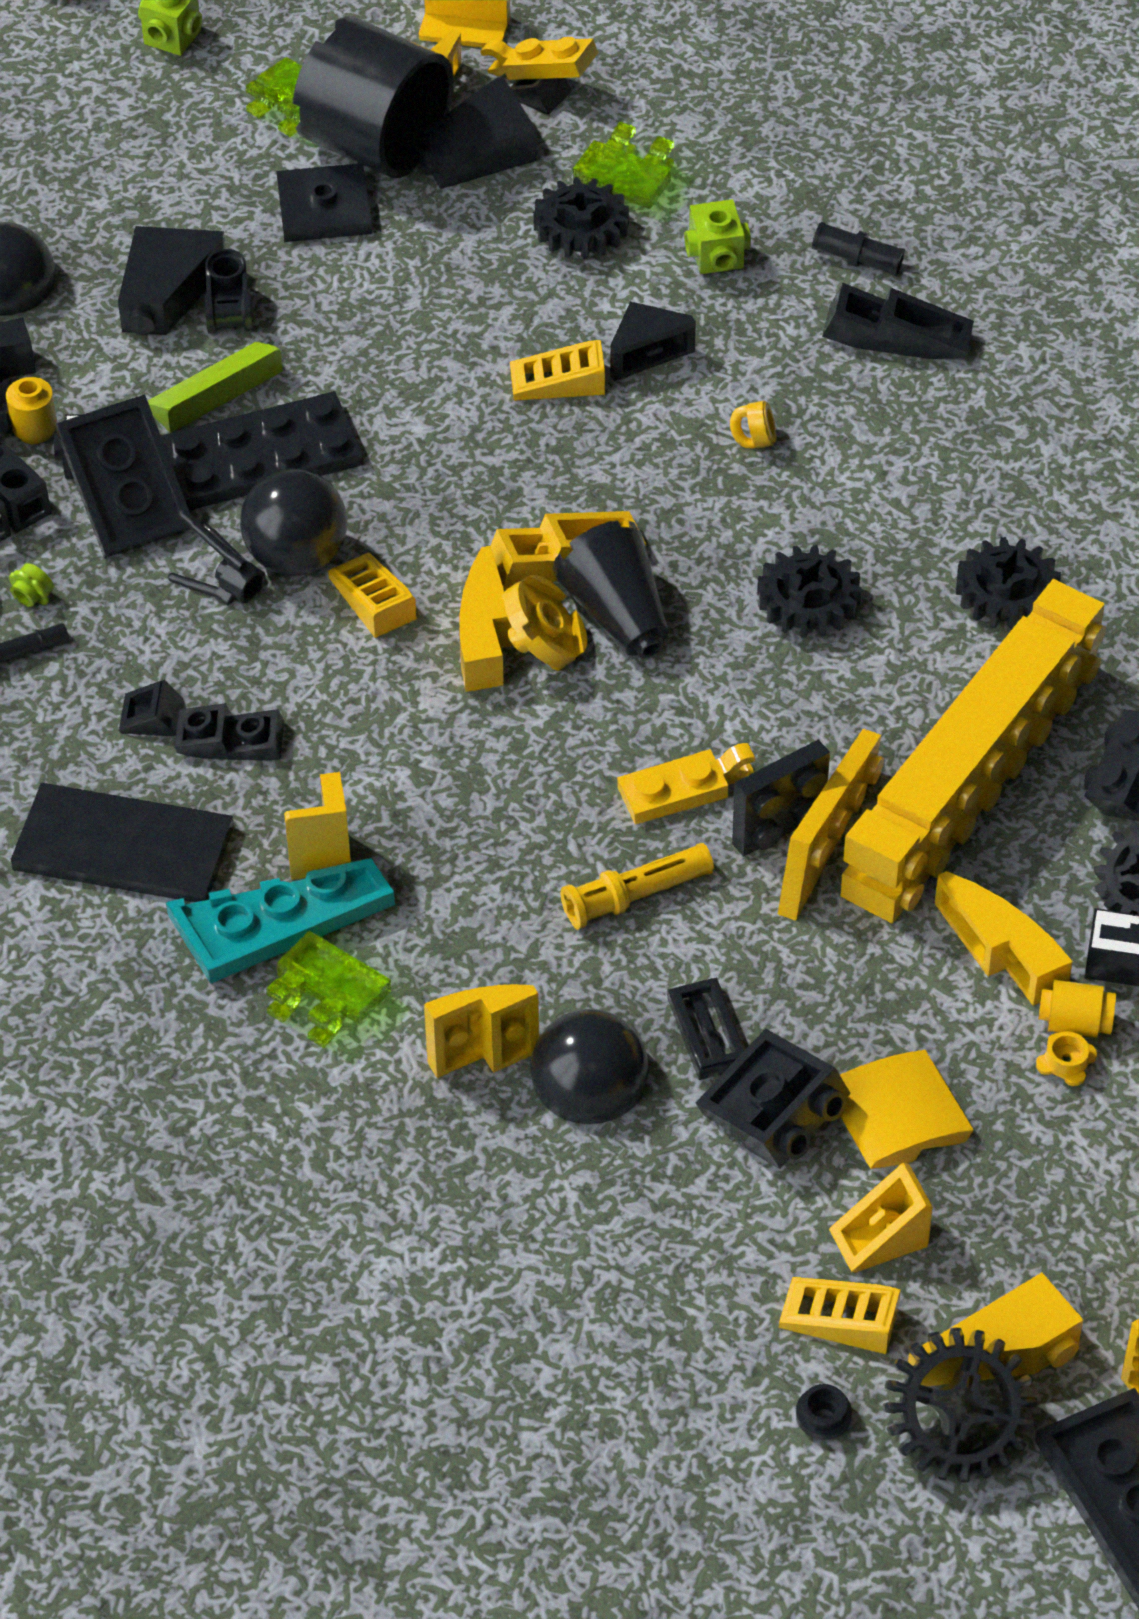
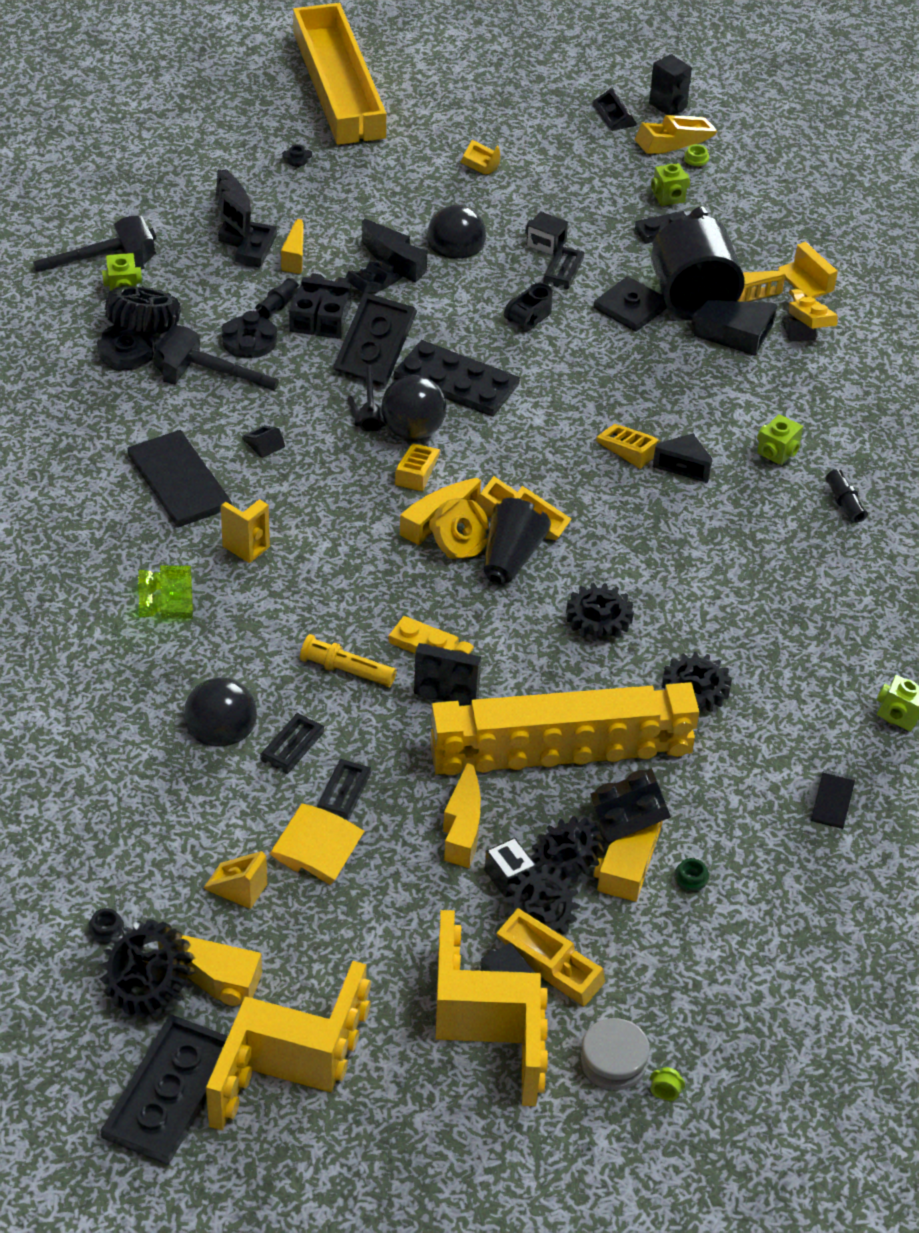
camera: 45 degrees right, 5 degrees down
(30, 585) = (287, 356): lime plate -> none
(31, 409) = (383, 284): yellow brick -> none
(113, 188) = (546, 233): none -> black brick
(155, 197) = (559, 279): none -> black tile
(164, 276) = (510, 278): black slope -> none
(216, 385) = (476, 340): lime slope -> none
(218, 734) = (277, 470): black slope -> none
(230, 72) = (651, 226): none -> black plate
(262, 923) = (175, 545): teal wing -> none
(479, 1024) = (187, 651): yellow slope -> none
(581, 218) = (732, 388): black gear -> none
(636, 177) = (788, 385): clear neon green plate -> none
(760, 424) = (682, 529): yellow tile -> none
(775, 1098) = (267, 789): black plate -> none
(795, 1004) = (336, 809): none -> black tile
(826, 821) = (417, 703): yellow wing -> none
(852, 1332) = (179, 916): yellow slope -> none
(896, 325) = (813, 539): black slope -> none
(1071, 1046) = (420, 882): yellow plate -> none
(1077, 1008) = (452, 874): yellow brick -> none

